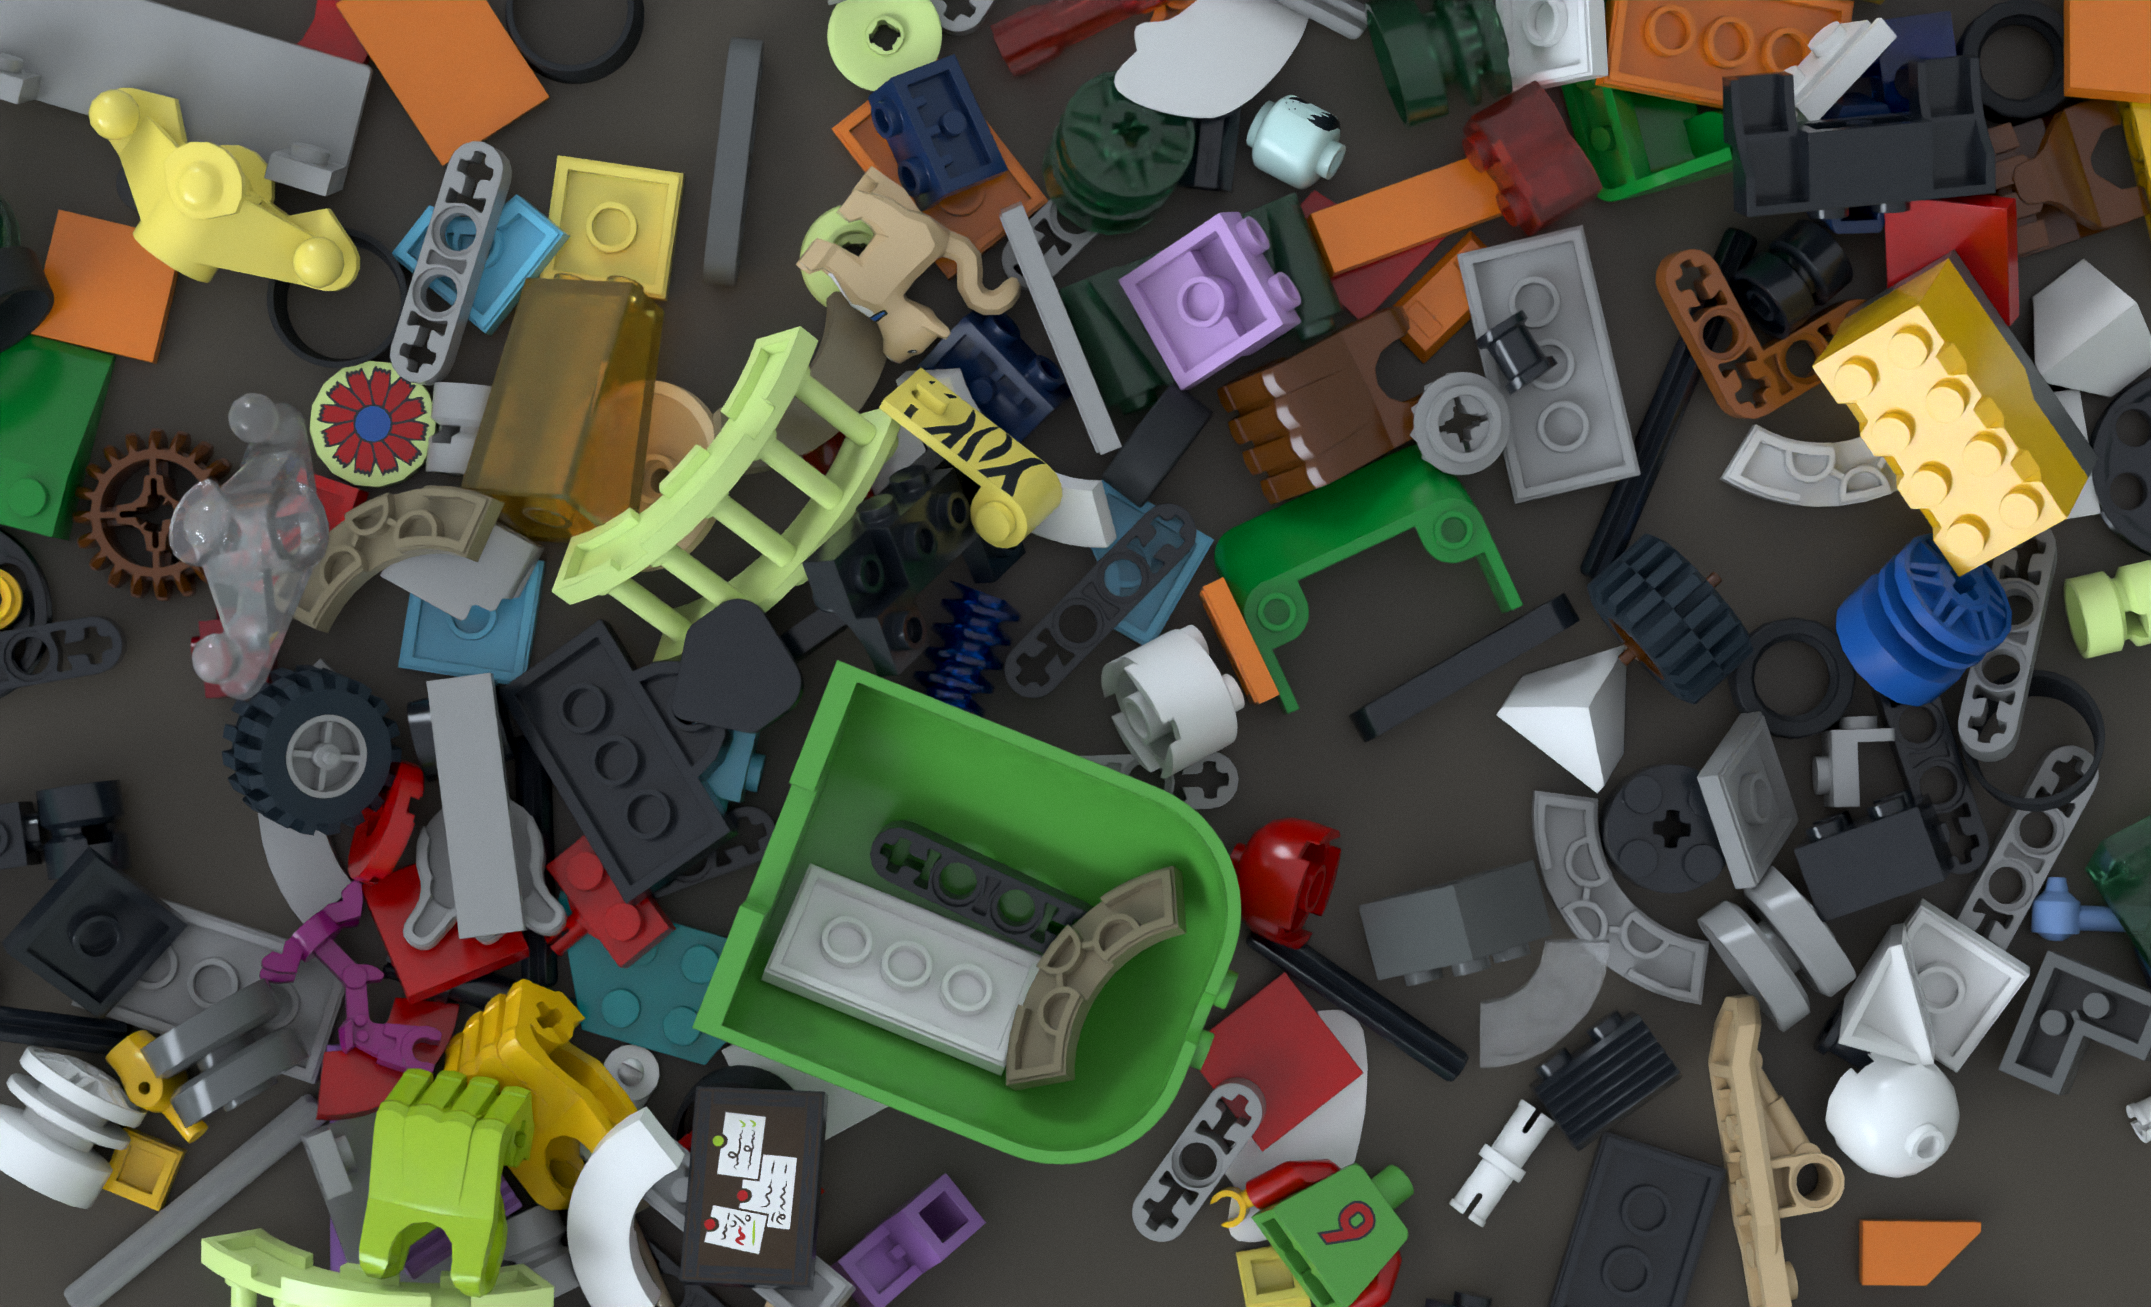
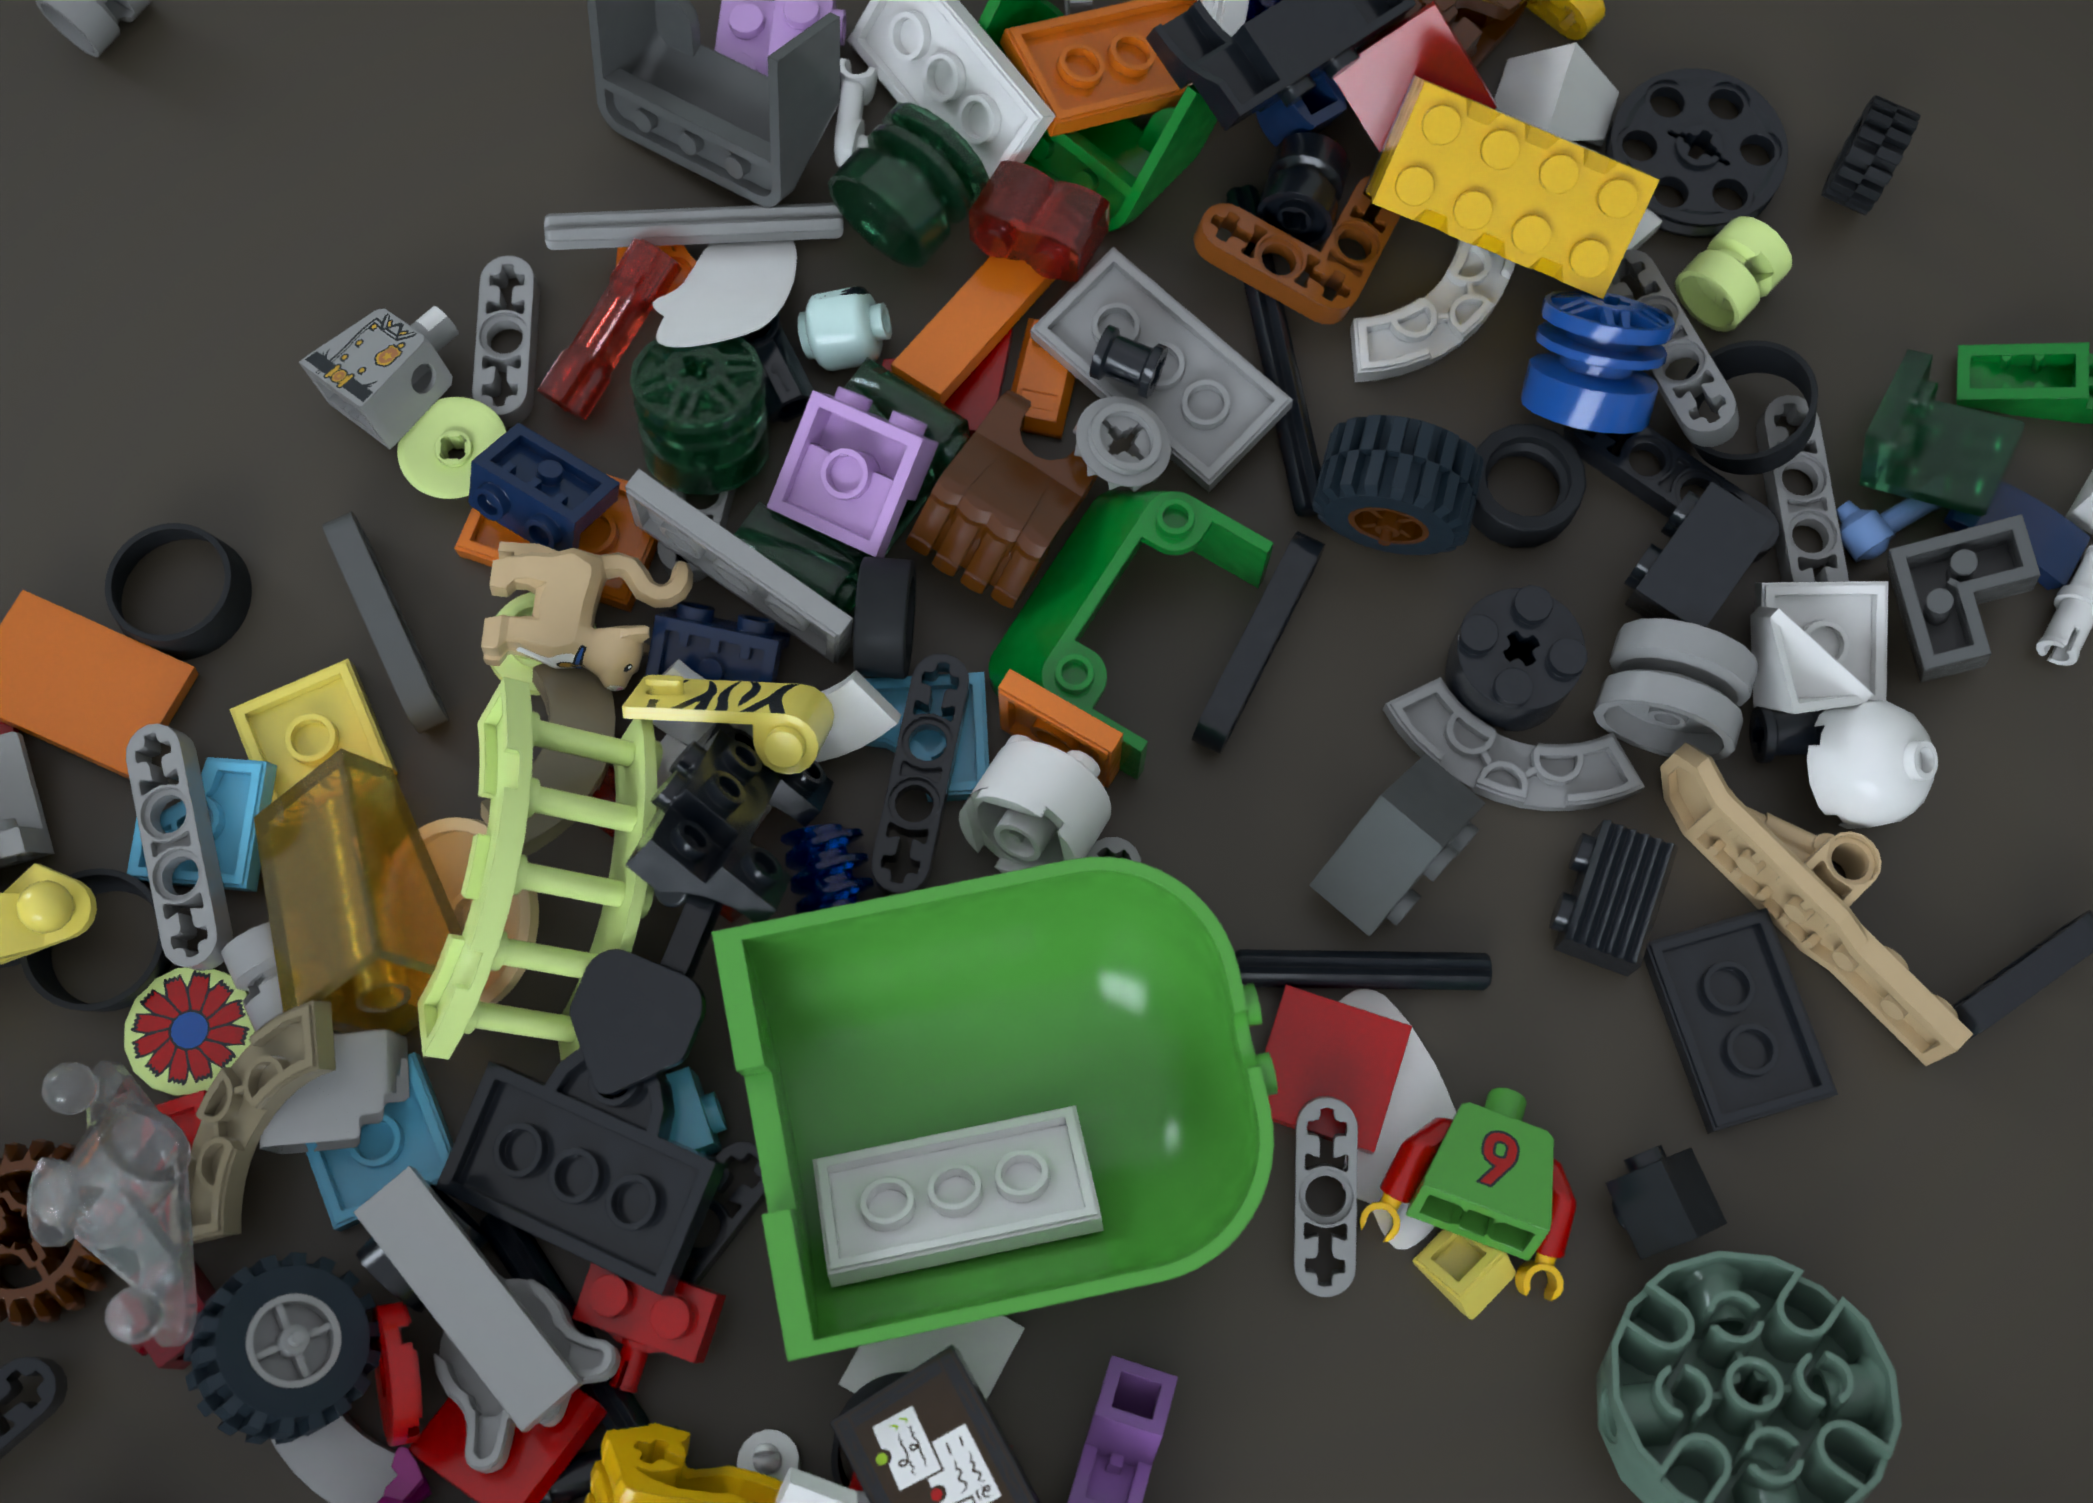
camera: 30 degrees left, 15 degrees down
(654, 997) = (744, 1377): teal wing -> none
(992, 882) = (986, 1092): black beam -> none
(1079, 966) = (1108, 1086): dark tan tile -> none
(1285, 877) = (1238, 894): red cylinder -> none
(1502, 1163) = (1581, 1027): white pin -> none
(1545, 1006) = (1521, 869): clear tile -> none
(1574, 714) = (1373, 621): white slope -> none
(1748, 799) = (1565, 586): light grey tile -> none
(1838, 769) = (1609, 523): light grey bracket -> none
(1910, 1249) = (1960, 876): orange tile -> none

